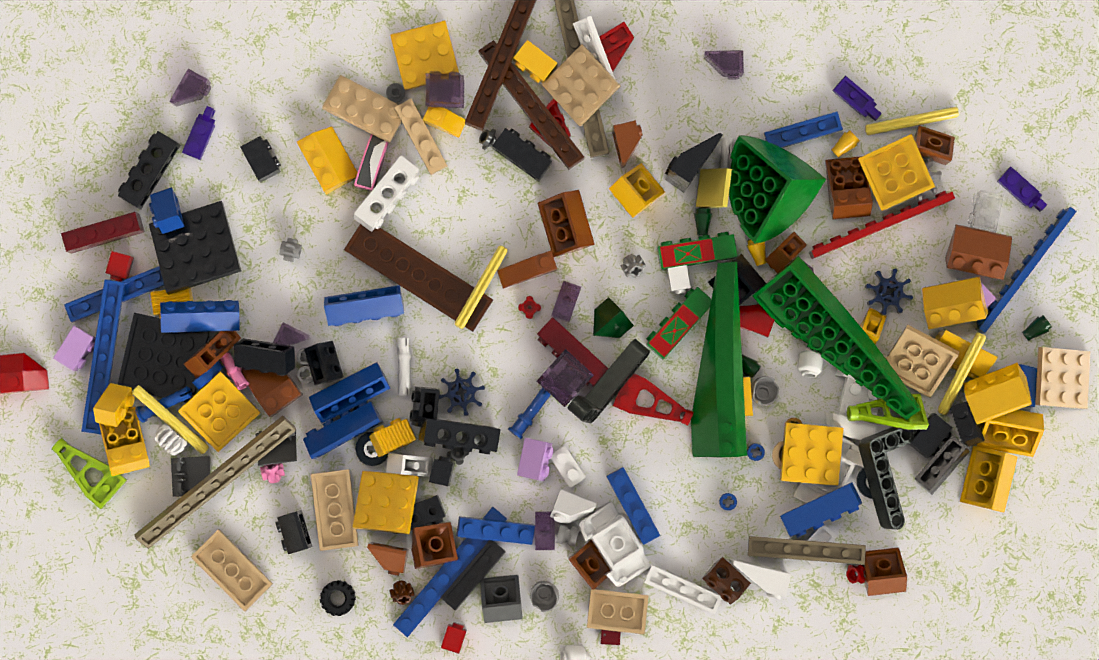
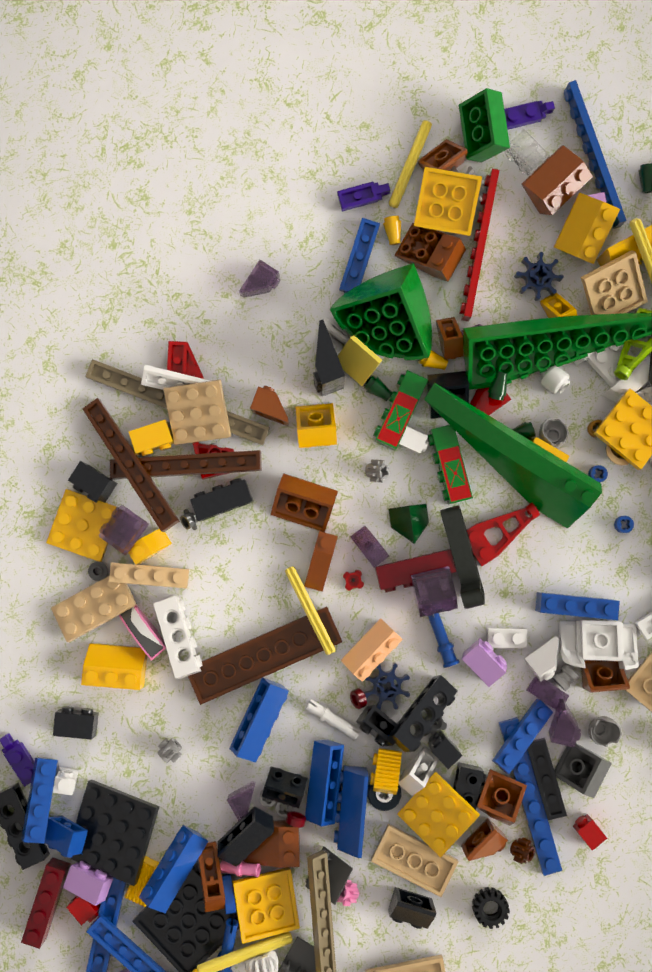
camera: 55 degrees left, 0 degrees up
(142, 255) = (88, 883): none -> lavender brick
(182, 171) = (39, 800): none -> blue brick
(209, 182) = (65, 781): none -> white brick
(304, 389) = (295, 819): none -> dark red tile
(435, 375) = (358, 698): none -> dark red tile
(465, 38) = (92, 482): none -> black brick
(482, 359) = (371, 650): none -> light nougat brick
(527, 560) = (564, 726): none -> clear purple slope
(771, 317) = (498, 386): none -> dark green cone
(983, 160) = (484, 125): none -> green brick

